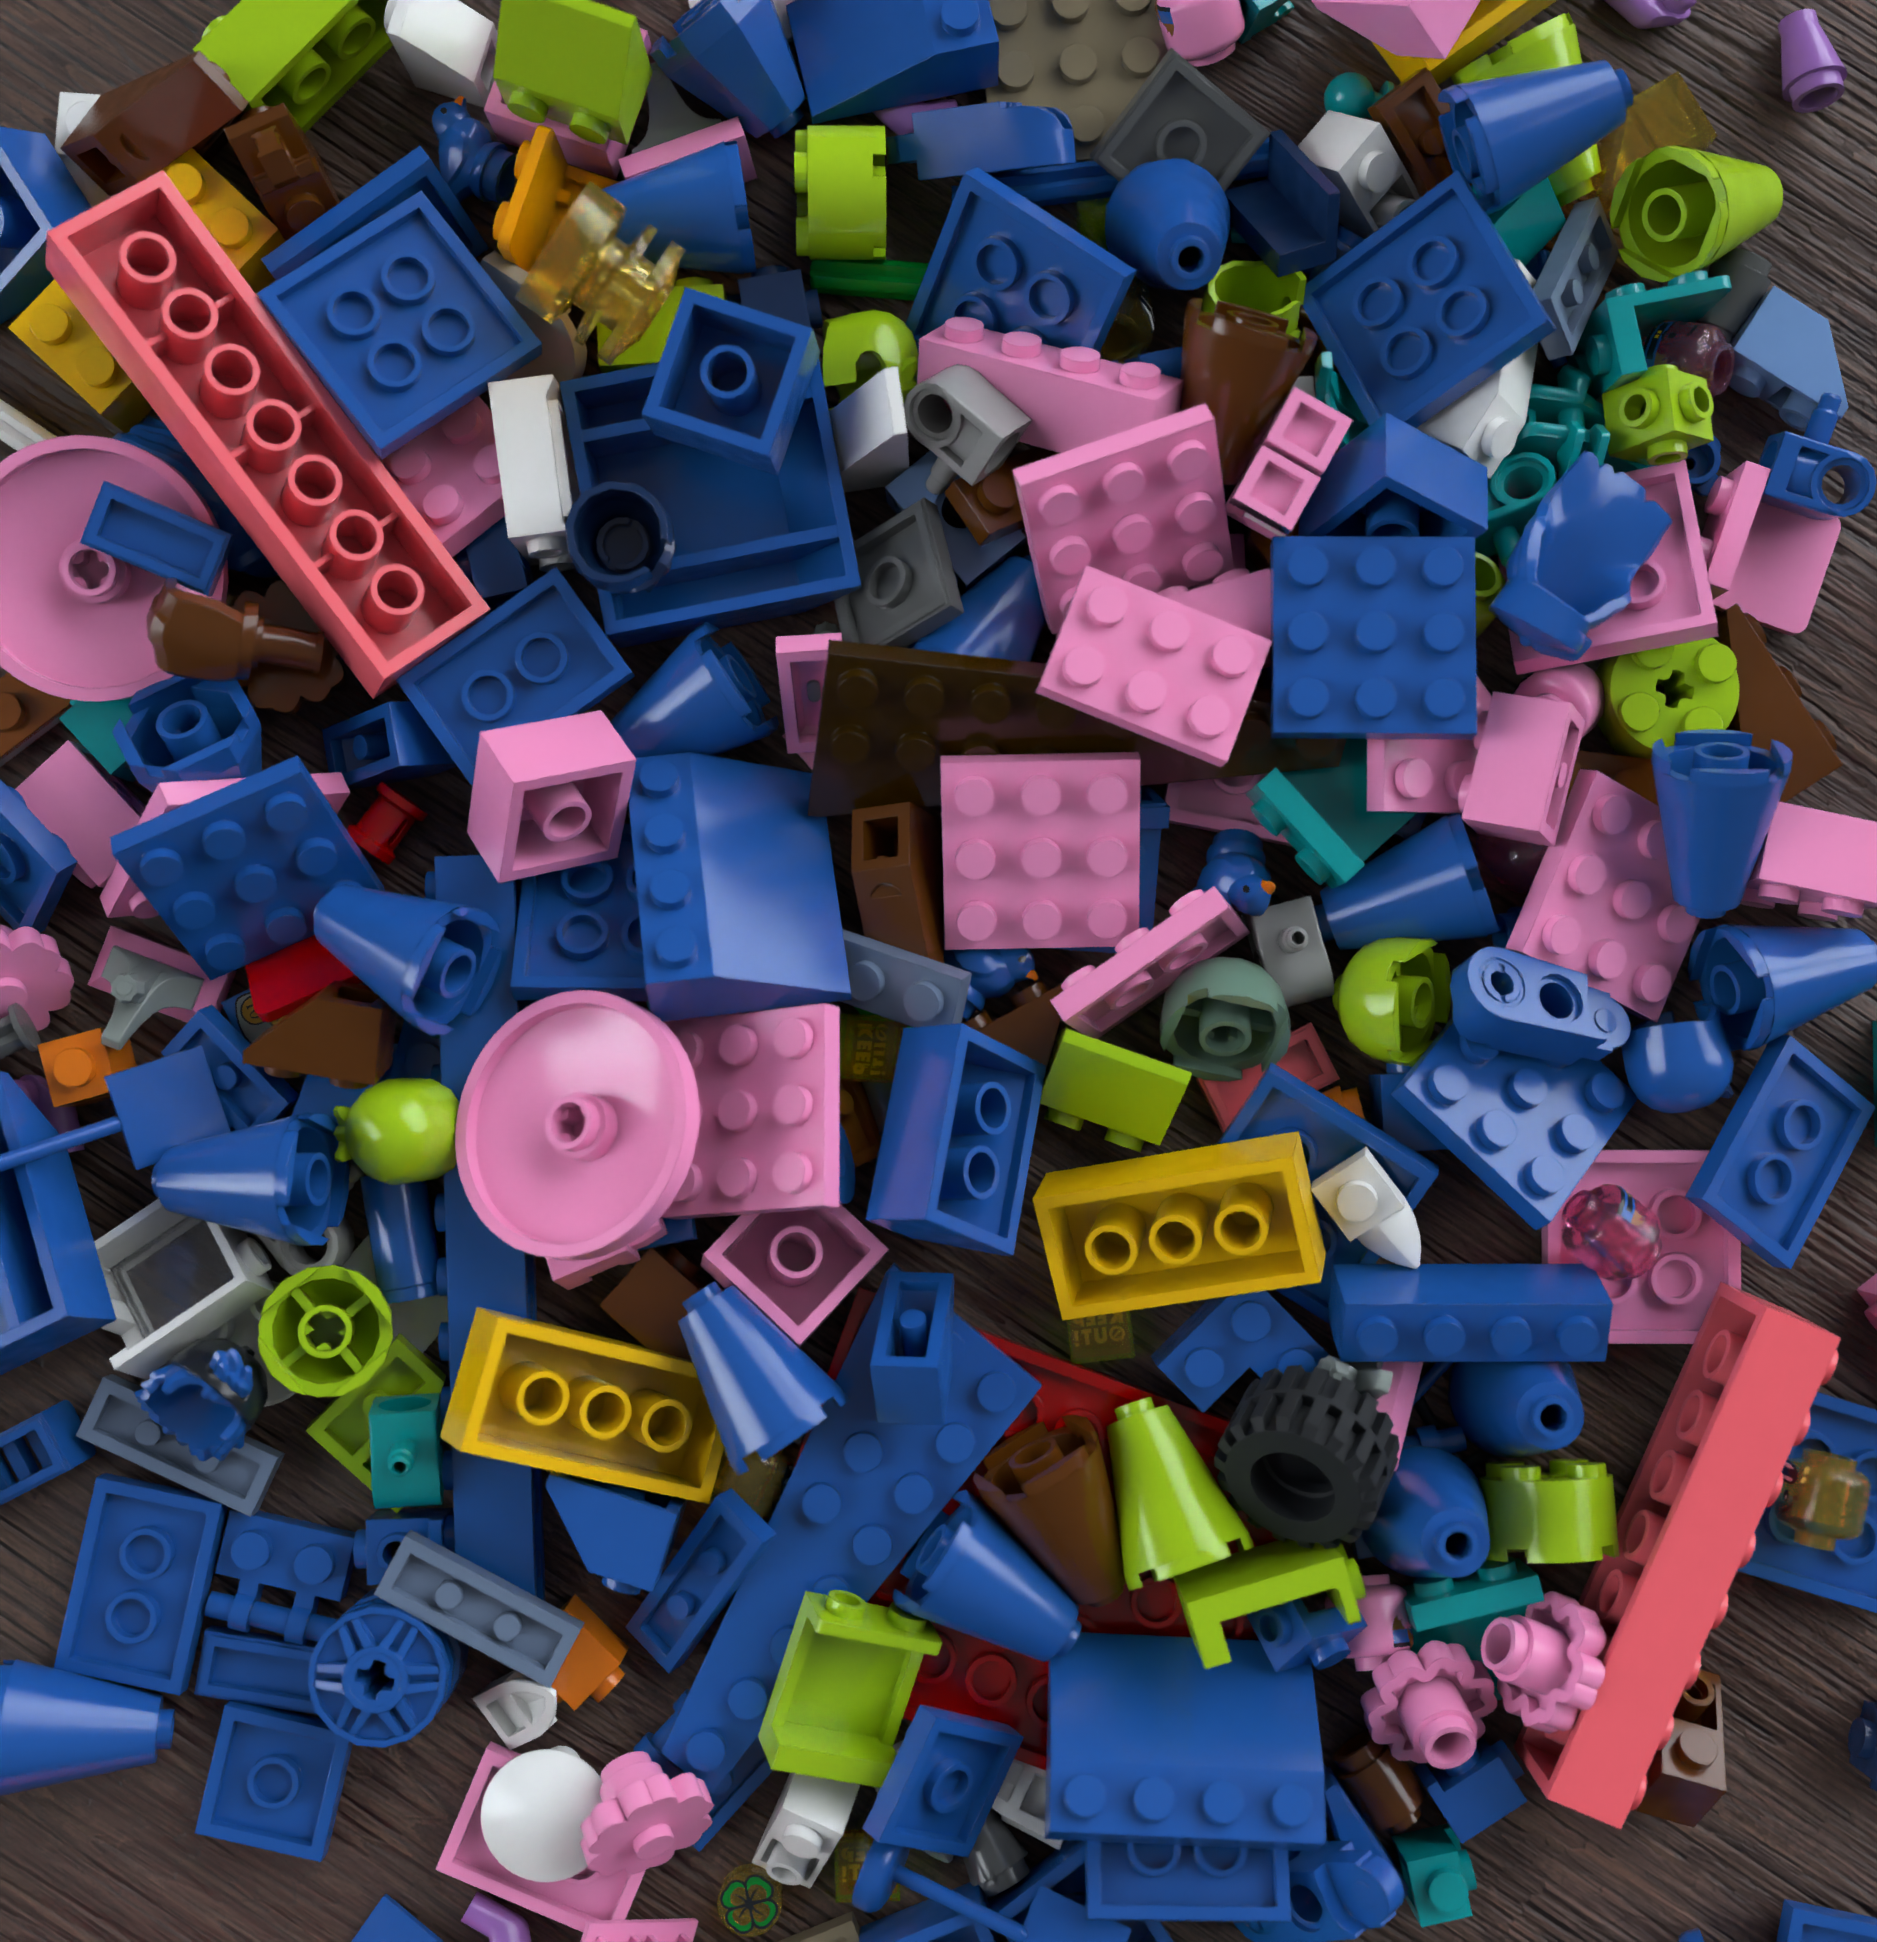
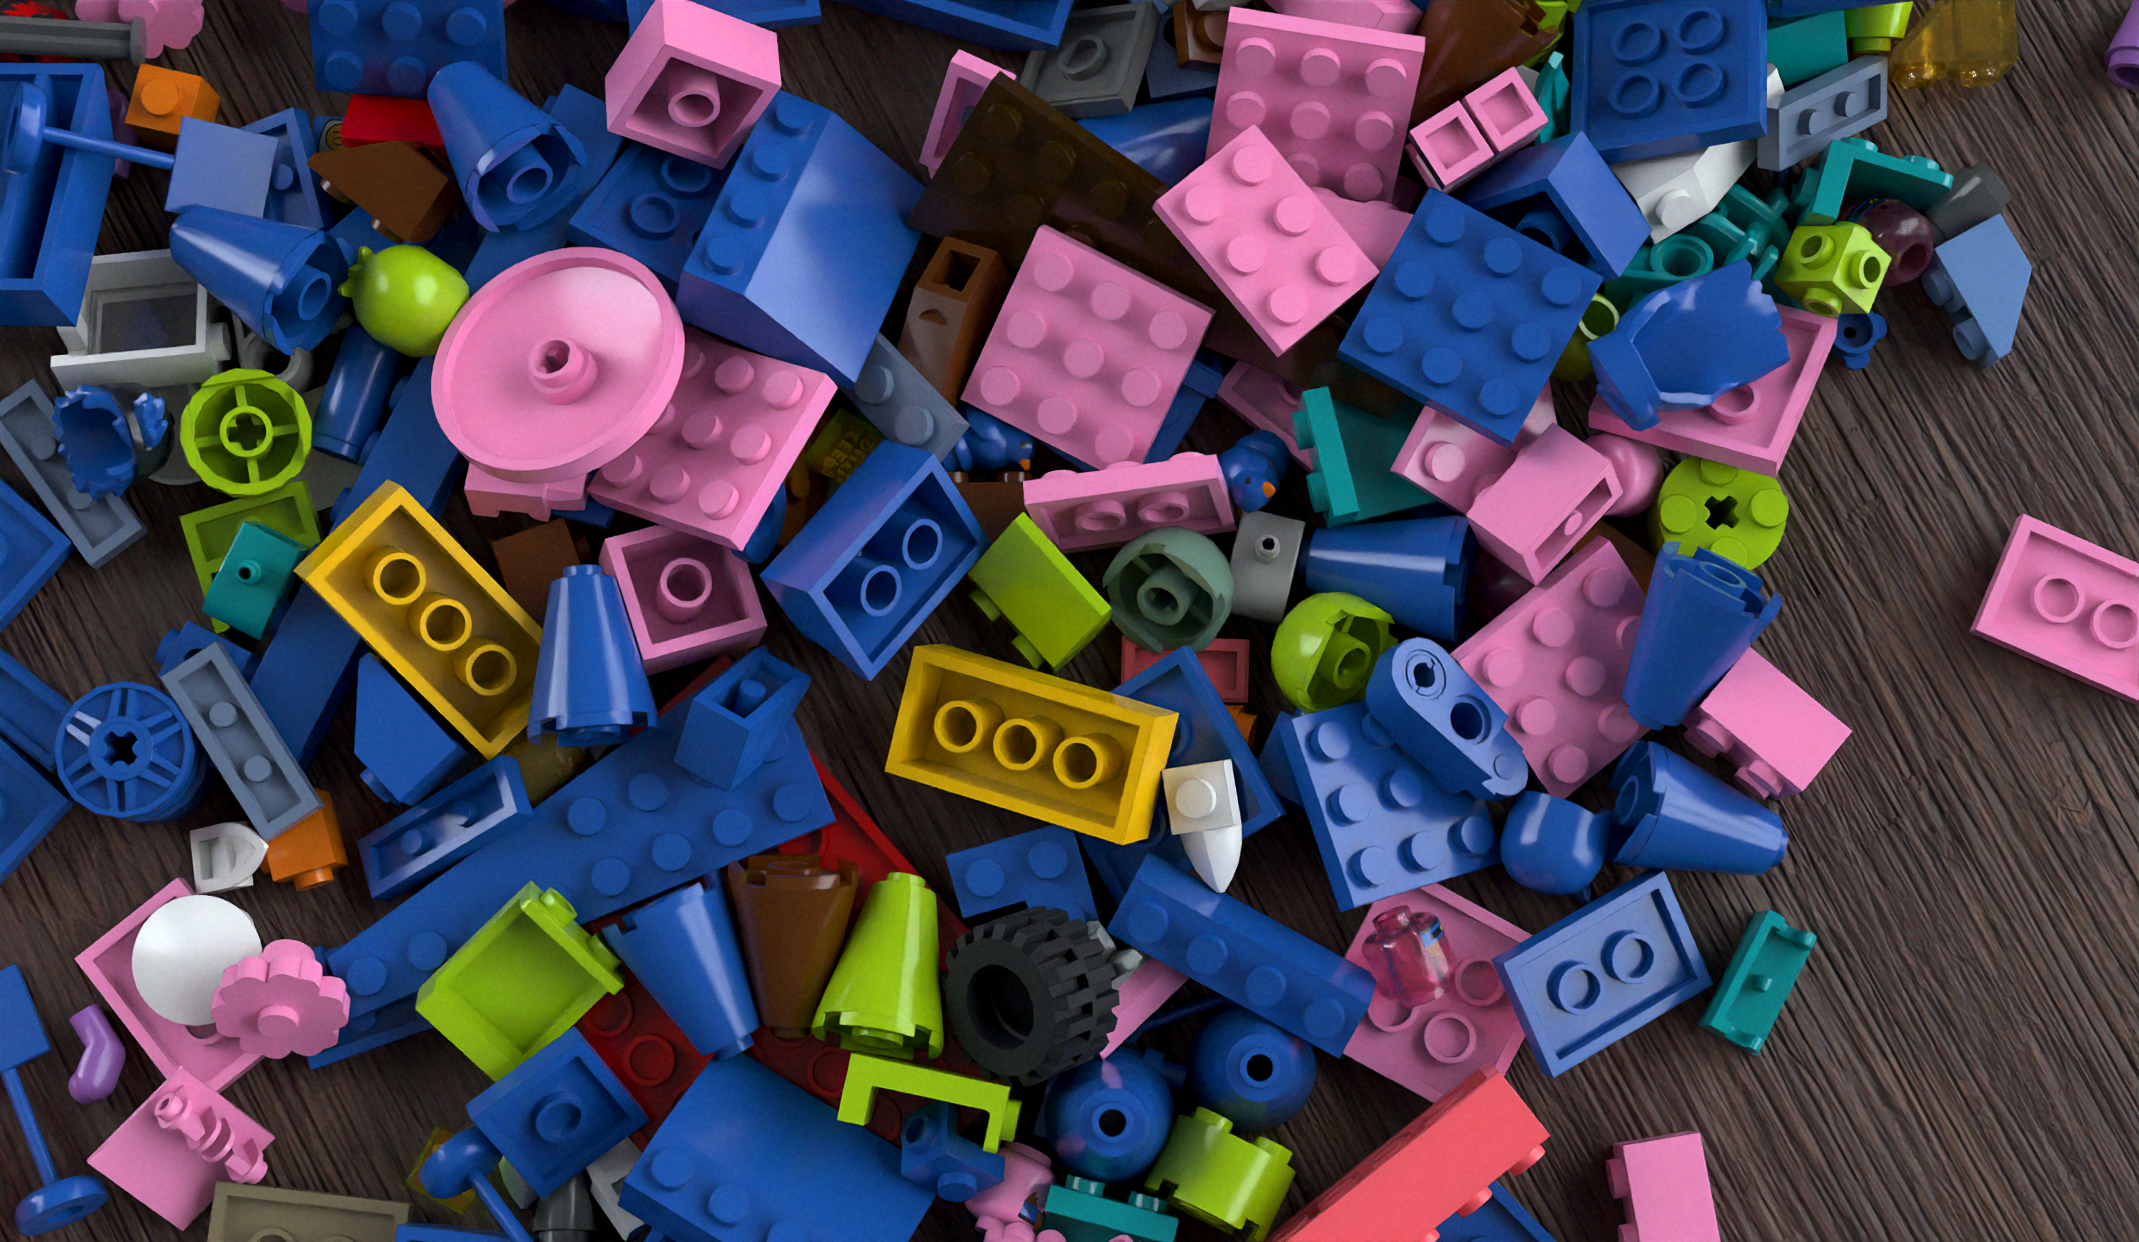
camera: 30 degrees right, 5 degrees down
(149, 980) = (268, 64): light grey piece -> none
(285, 1555) = (97, 617): blue plate -> none
(386, 822) = (541, 38): red bush -> none
(696, 702) = (865, 74): blue cone -> none
(749, 1901) = (330, 1142): tile -> none
(804, 1828) = (418, 1096): white slope -> none
(1100, 1338) = (915, 811): clear neon green tile -> none
(1689, 209) = (1961, 108): lime cone -> none
(1764, 554) = (1870, 443): bright pink bracket -> none
(1772, 704) = (1803, 575): reddish brown slope -> none
(1802, 462) = (1938, 375): blue piece -> none

